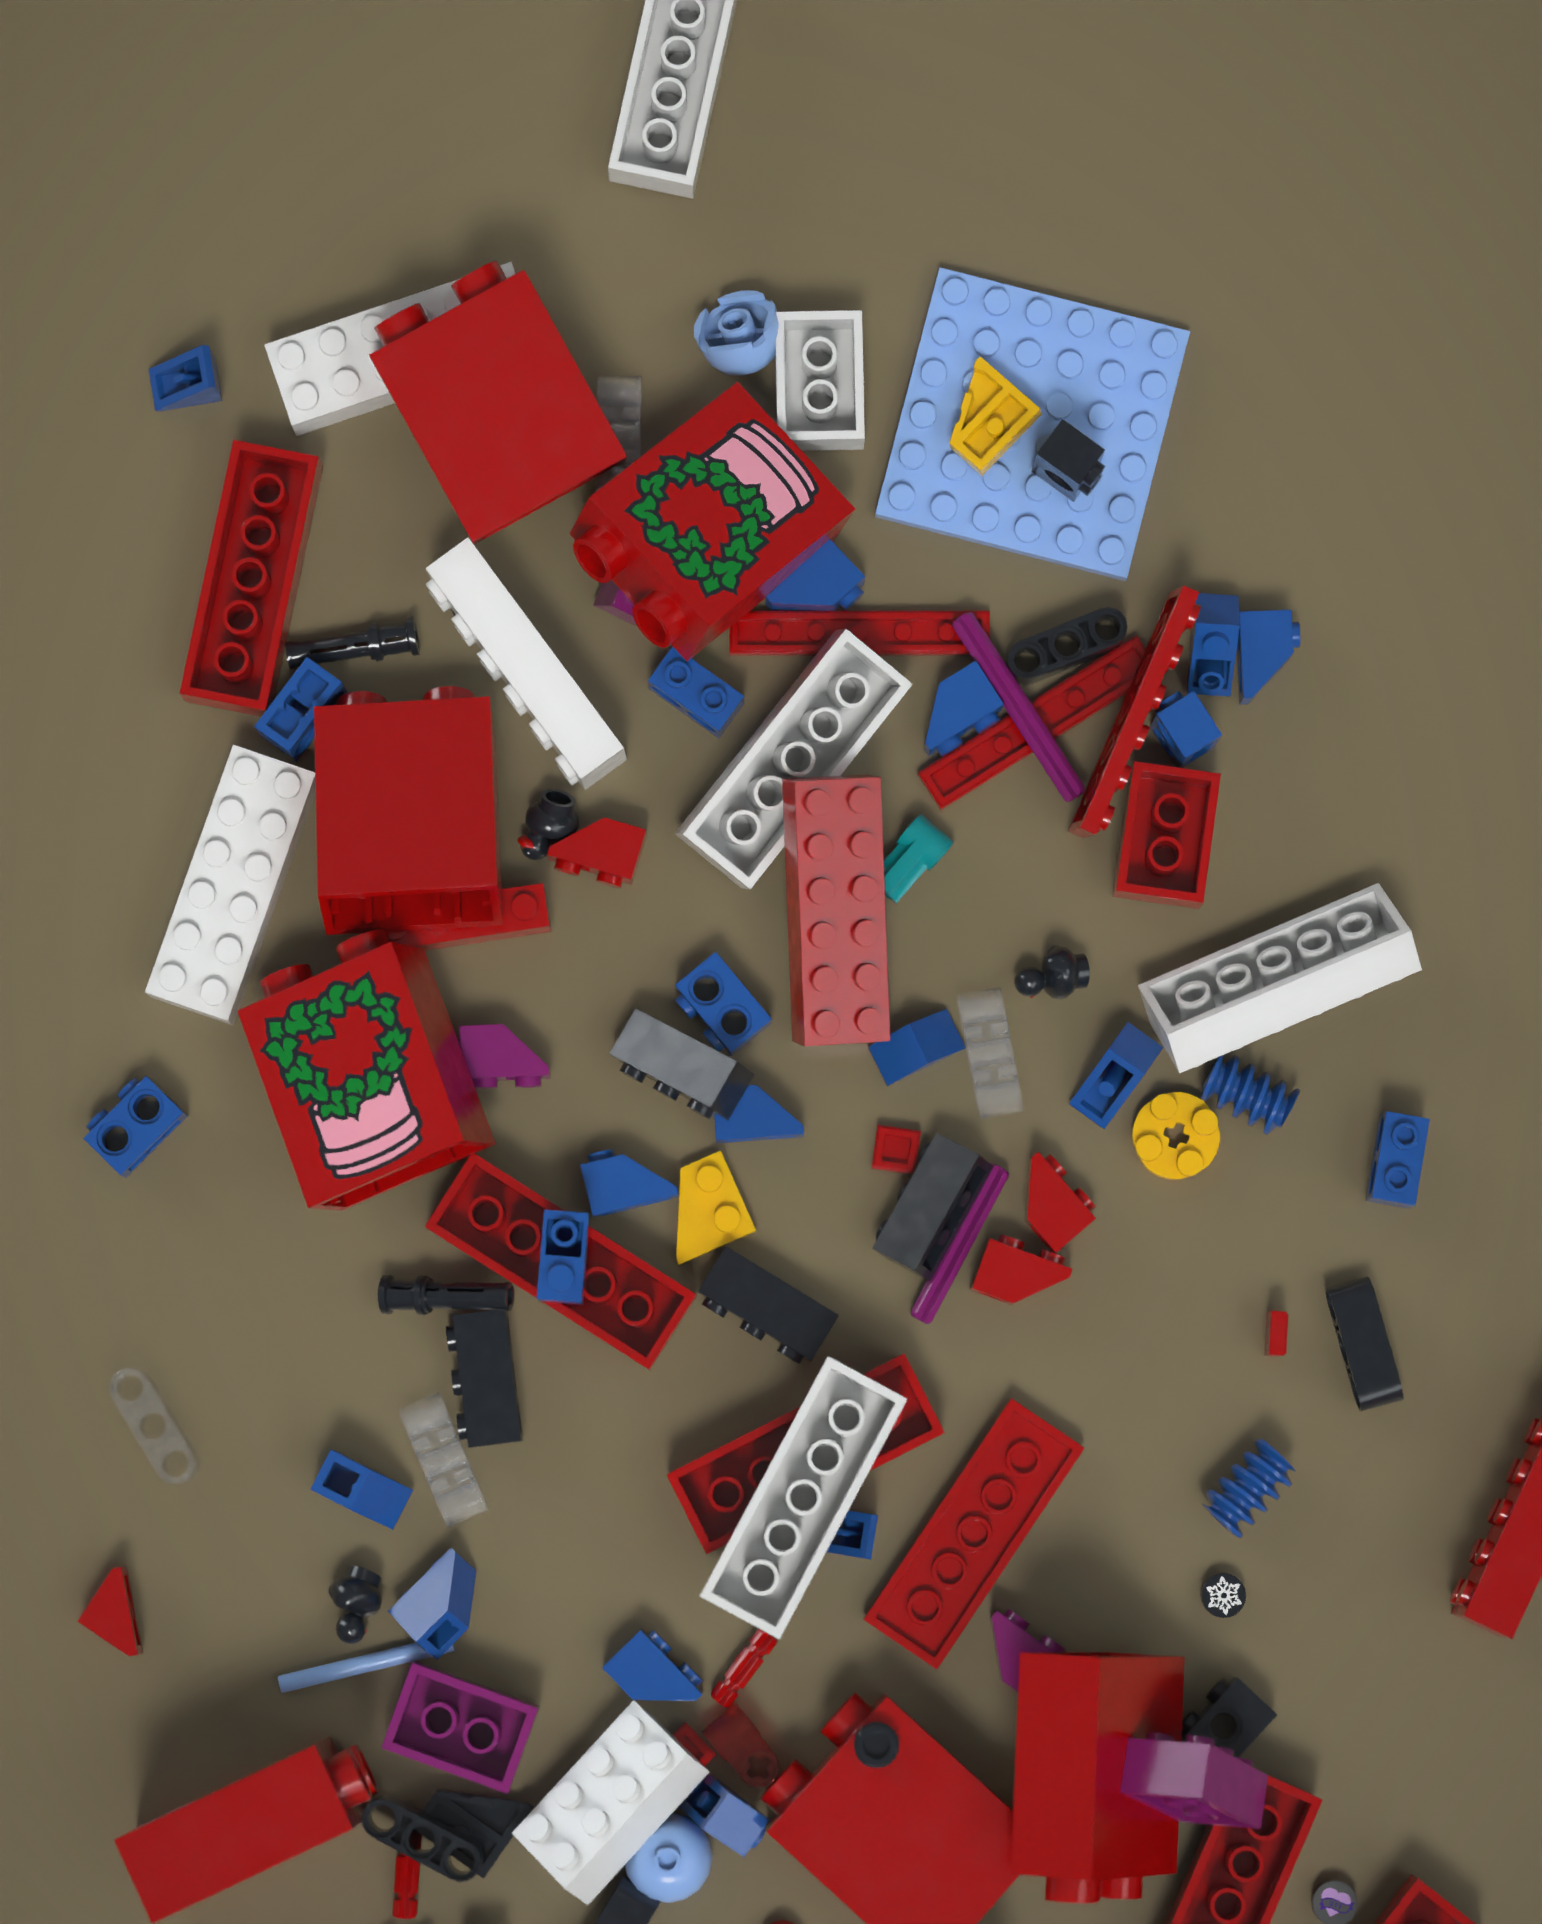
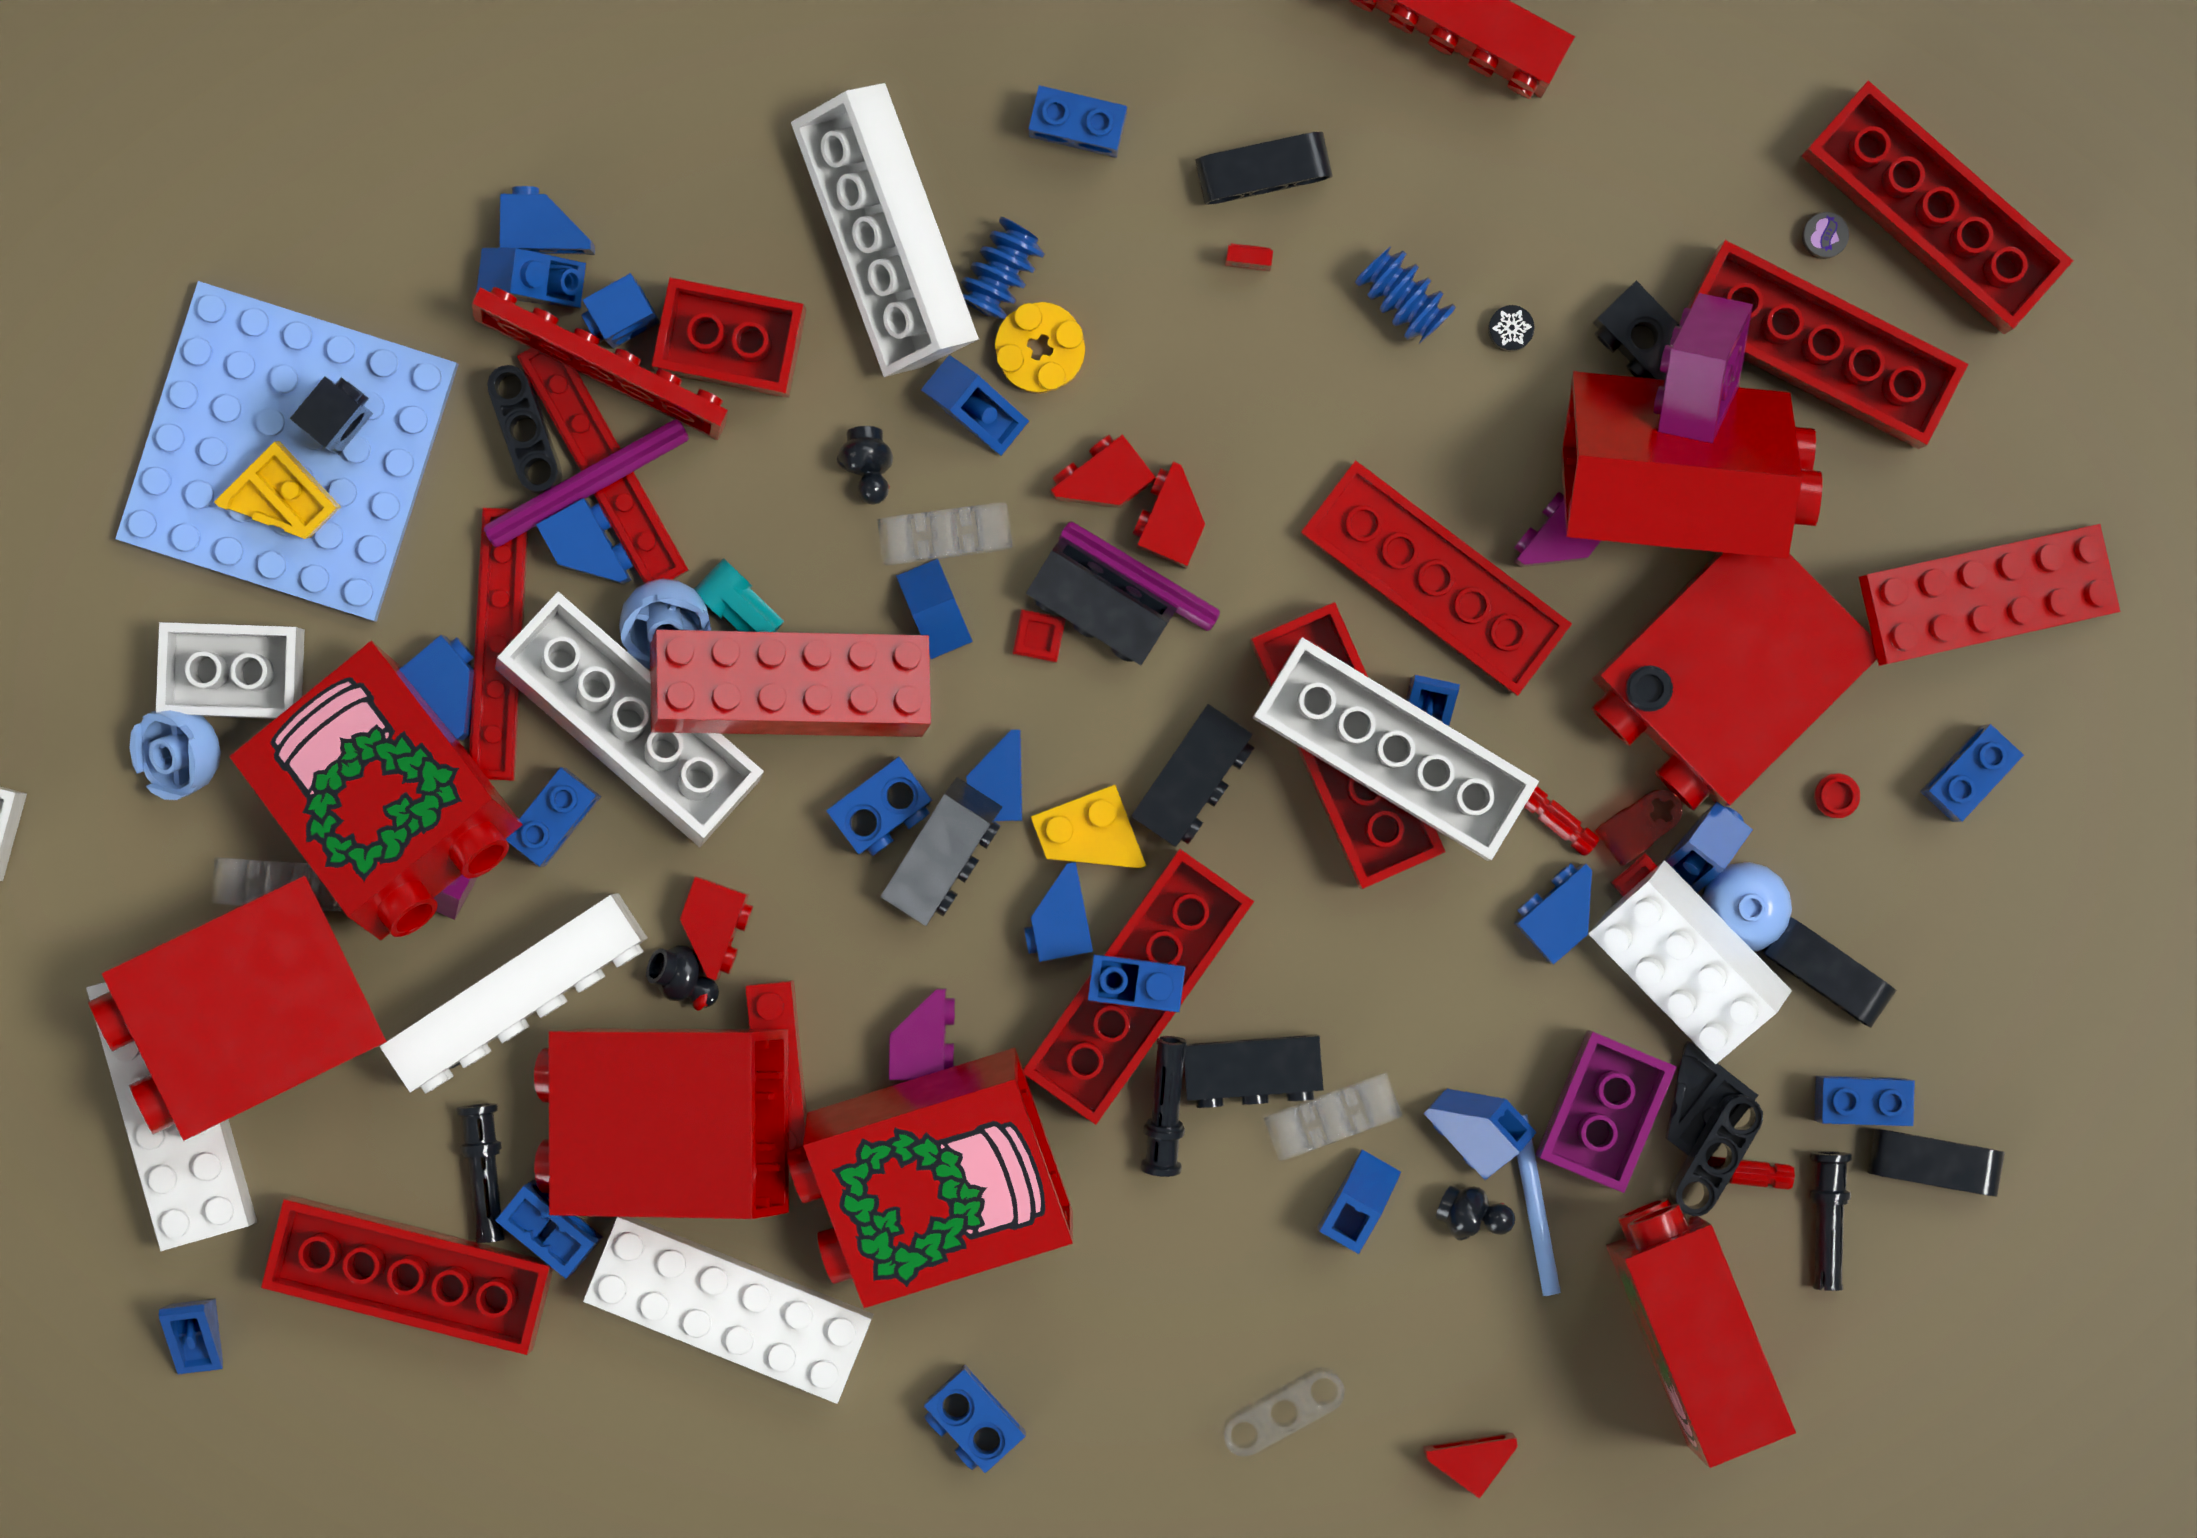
camera: 90 degrees left, 5 degrees up
(903, 782) = (659, 606): none -> light blue cylinder

